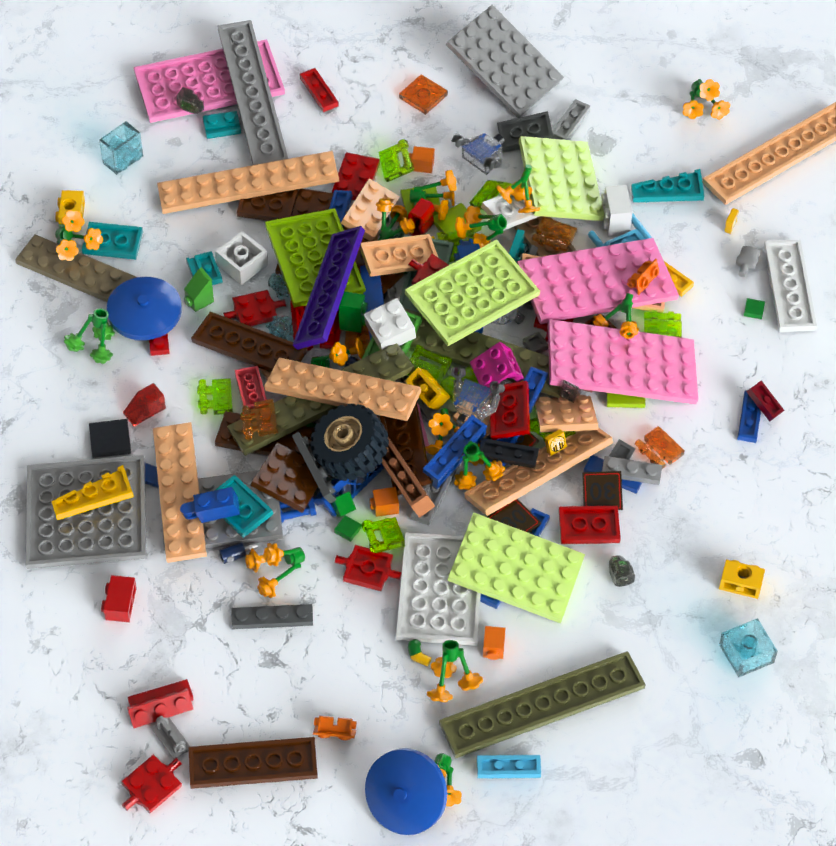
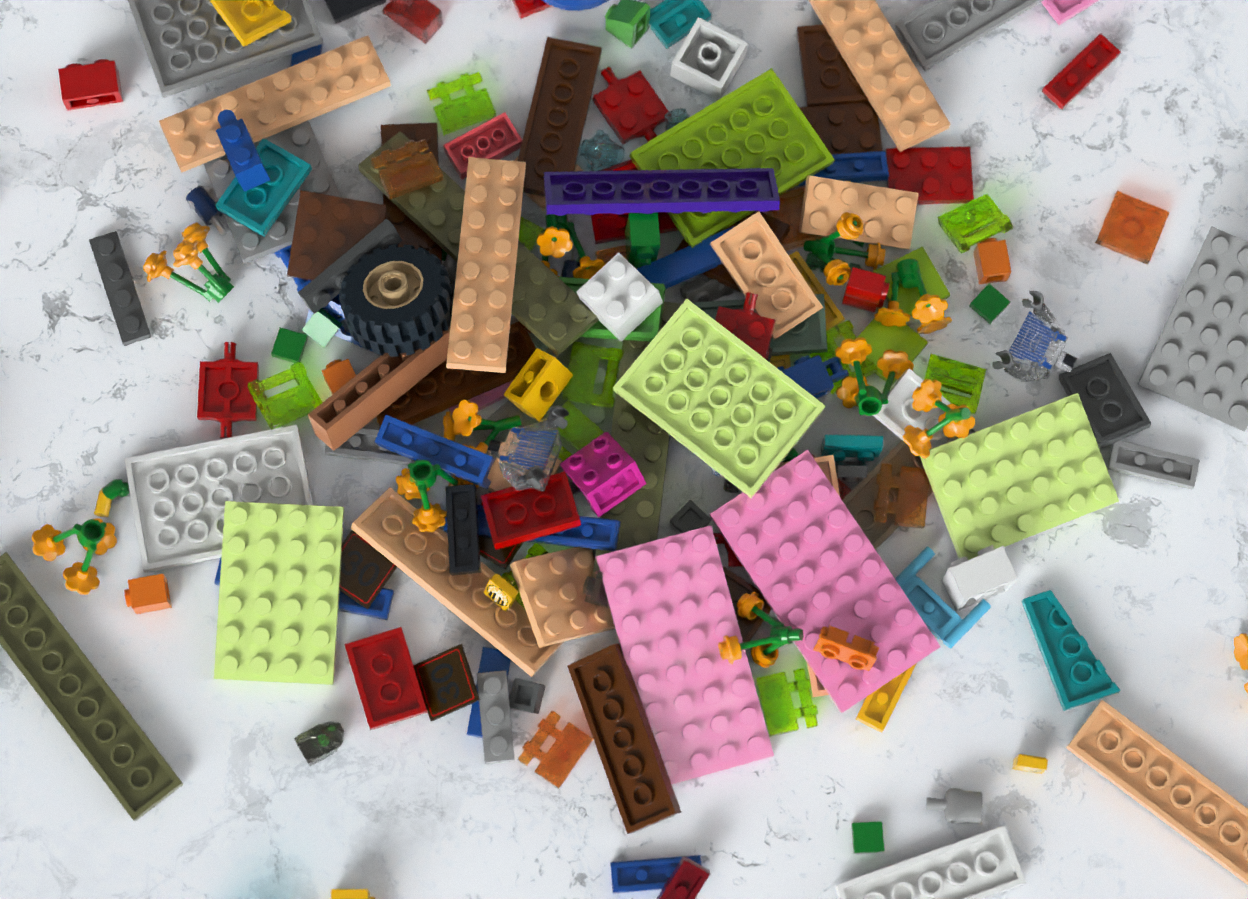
camera: 70 degrees right, 20 degrees up
(444, 166) = (989, 303): none -> green tile
(664, 406) = (624, 739): none -> reddish brown plate

